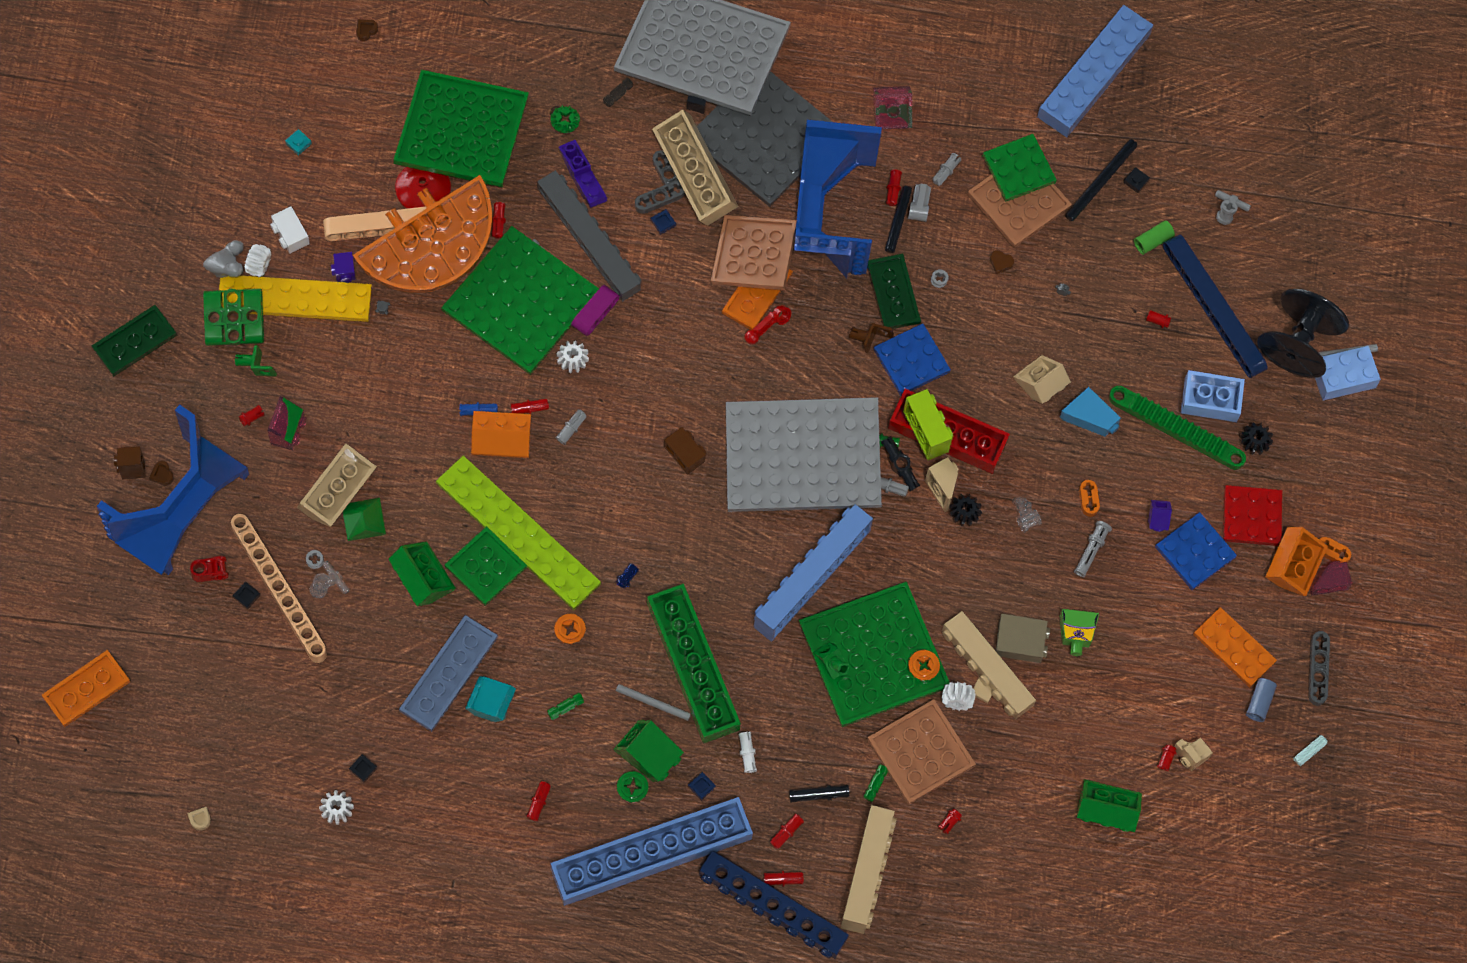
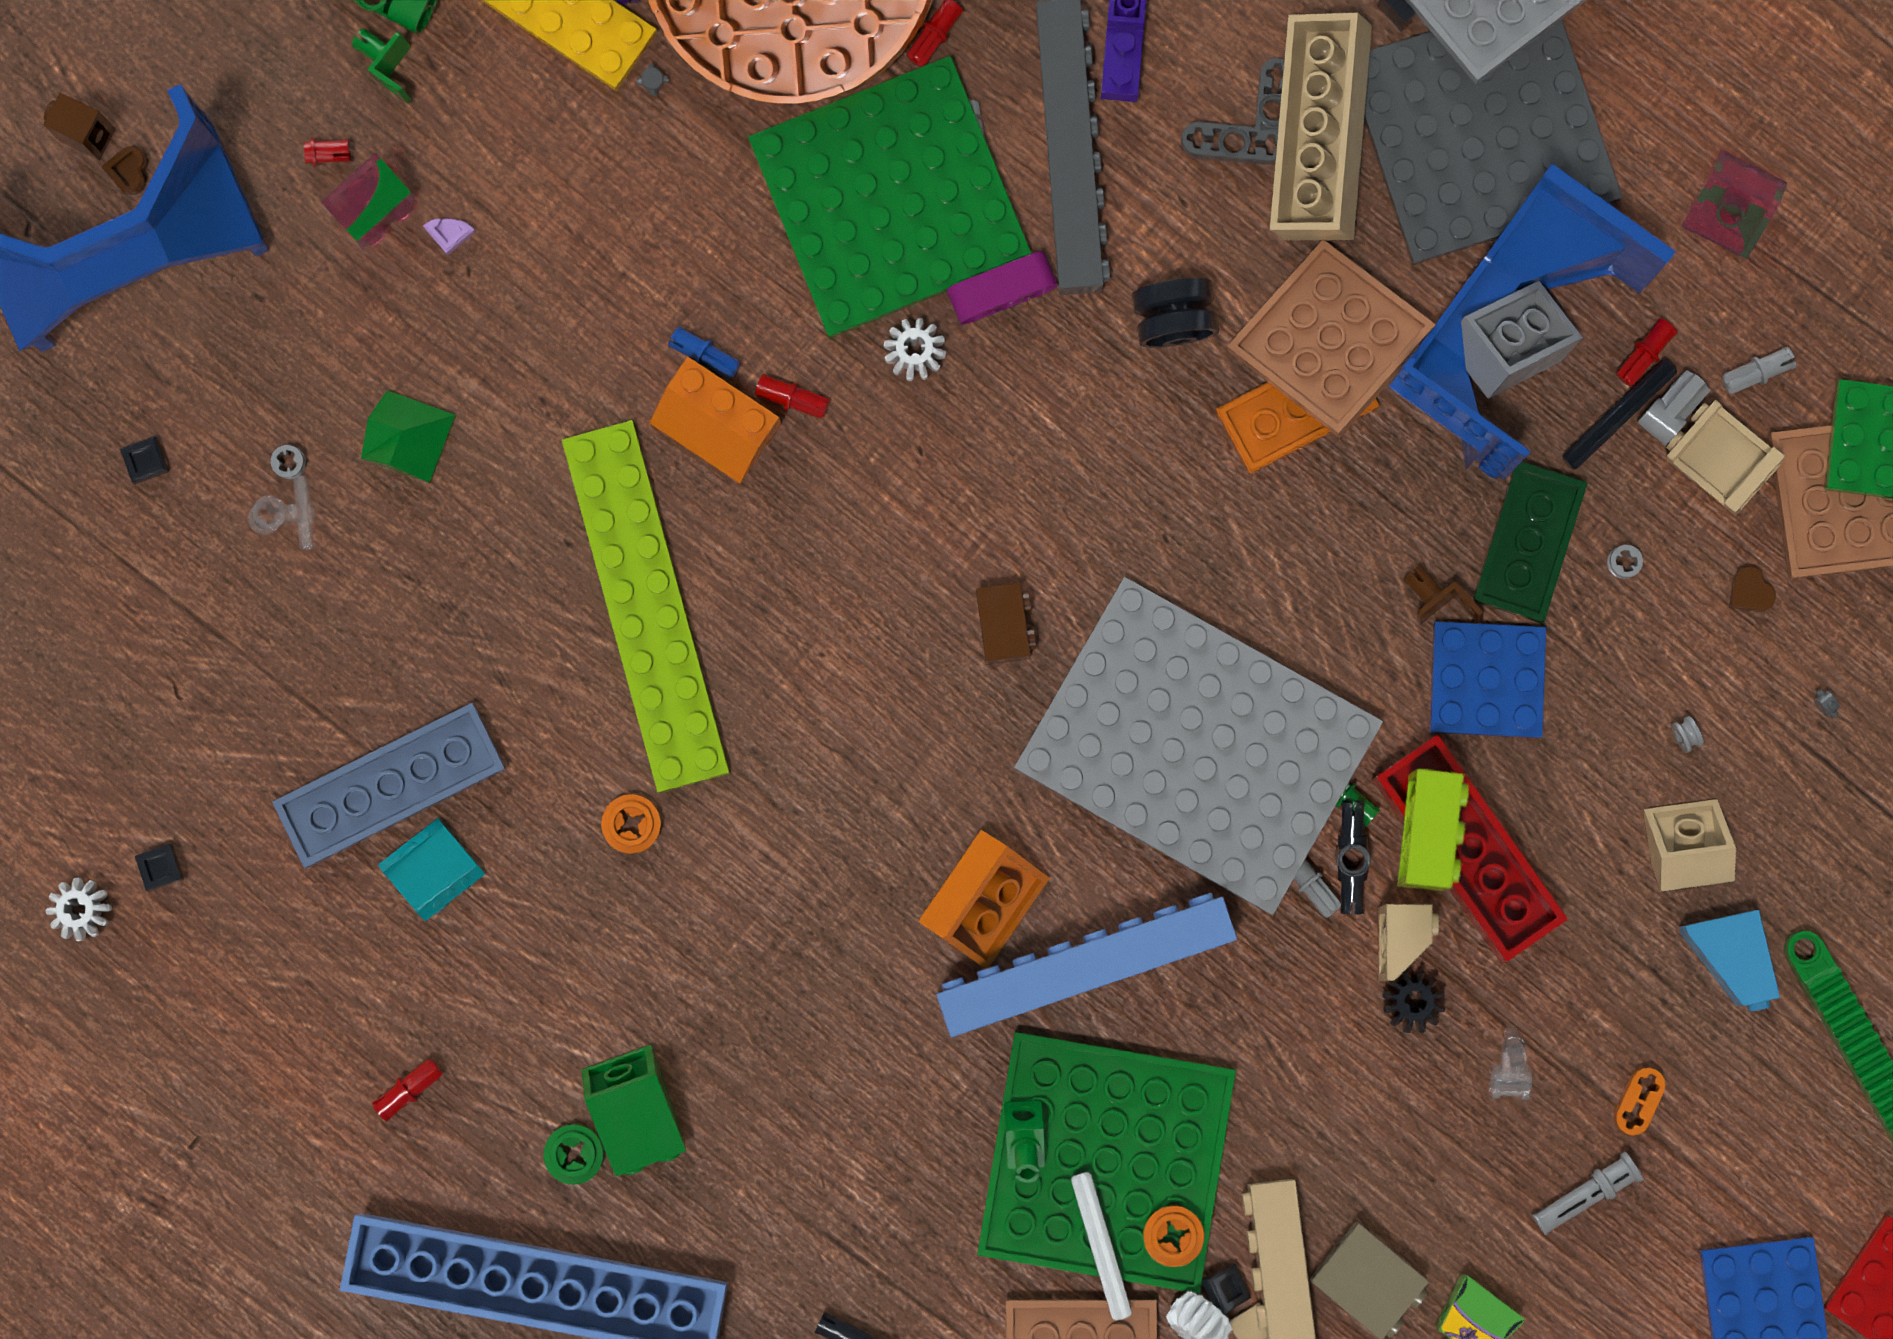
camera: 40 degrees right, 15 degrees up
(210, 568) = (112, 385): red piece -> none
(283, 595) = (191, 463): light nougat beam -> none
(328, 421) = (449, 233): none -> lavender tile
(336, 486) = (390, 359): tan slope -> none
(421, 573) = (444, 588): green slope -> none
(485, 566) = (556, 636): green plate -> none
(565, 706) = (546, 952): green axle -> none
(571, 427) = (840, 472): light grey axle -> none
(624, 579) = (778, 787): clear blue pin -> none
(653, 702) = (693, 1029): light grey piece -> none
(663, 221) = (1213, 191): dark blue tile -> none
(679, 277) = (1175, 312): none -> black wheel
(693, 663) = (793, 1006): green brick -> none
(701, 786) = (687, 1218): dark blue tile -> none
(747, 752) = (795, 1207): white pin -> none
(749, 571) = (984, 899): none -> orange slope
(752, 336) = (1240, 484): red piece -> none
(835, 208) = (1516, 339): none -> light grey slope
(895, 688) = (1101, 1246): none -> white axle
(954, 211) = (1724, 457): none -> tan panel
(961, 675) = (1226, 1288): none -> black tile
(1012, 334) = (1687, 734): none -> light grey bush
(1159, 515) = (1737, 1214): dark purple brick -> none

